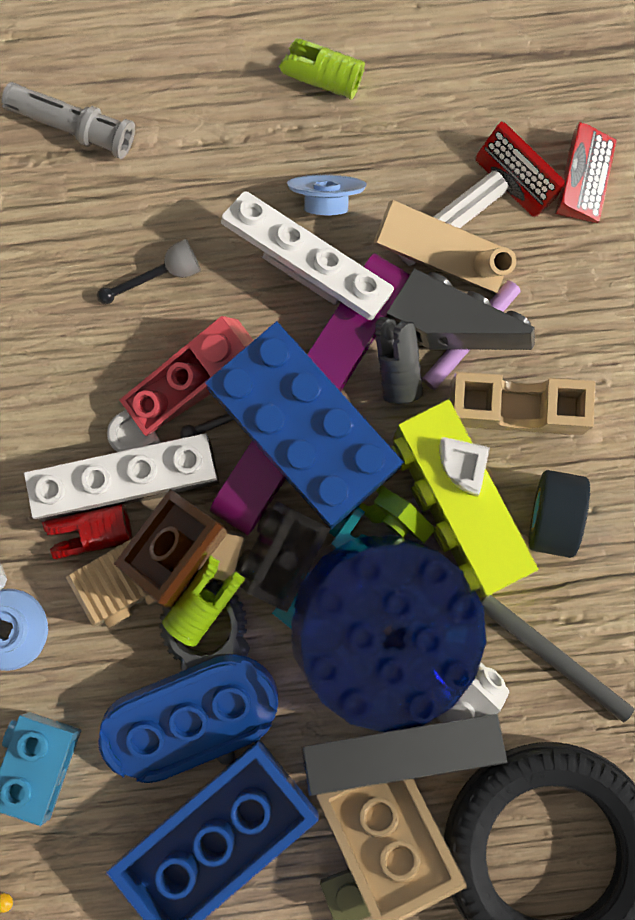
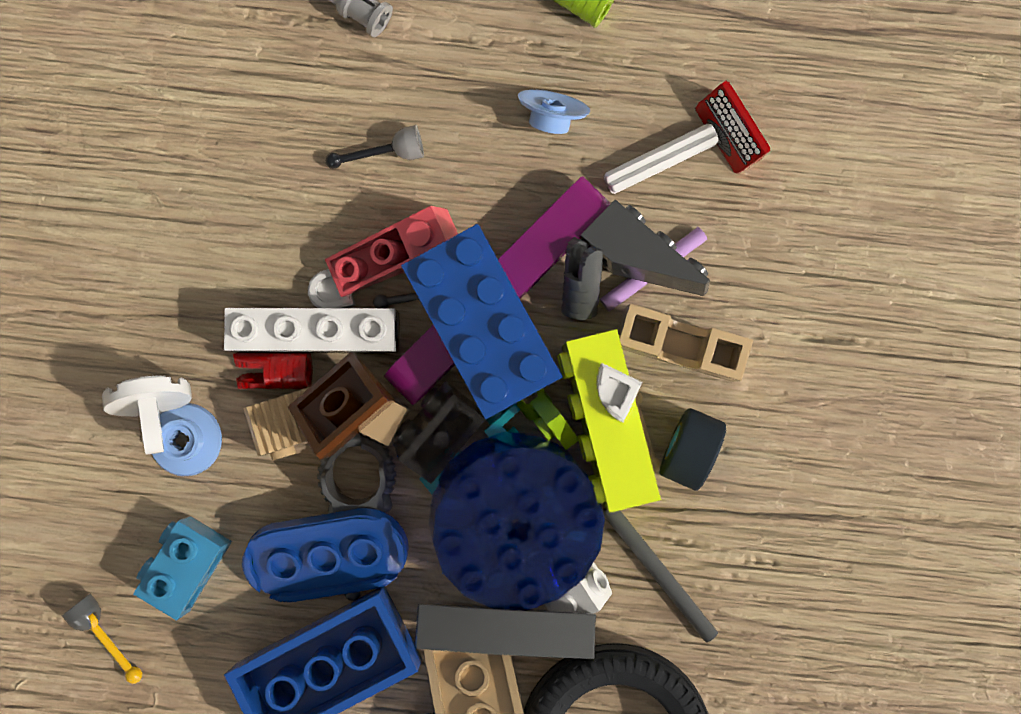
camera: 10 degrees right, 5 degrees up
(198, 606) = (355, 460): lime hinge -> none
(307, 256) = (520, 166): white bracket -> none
(444, 247) = (647, 185): tan piece -> none
(586, 174) = (792, 144): slope -> none

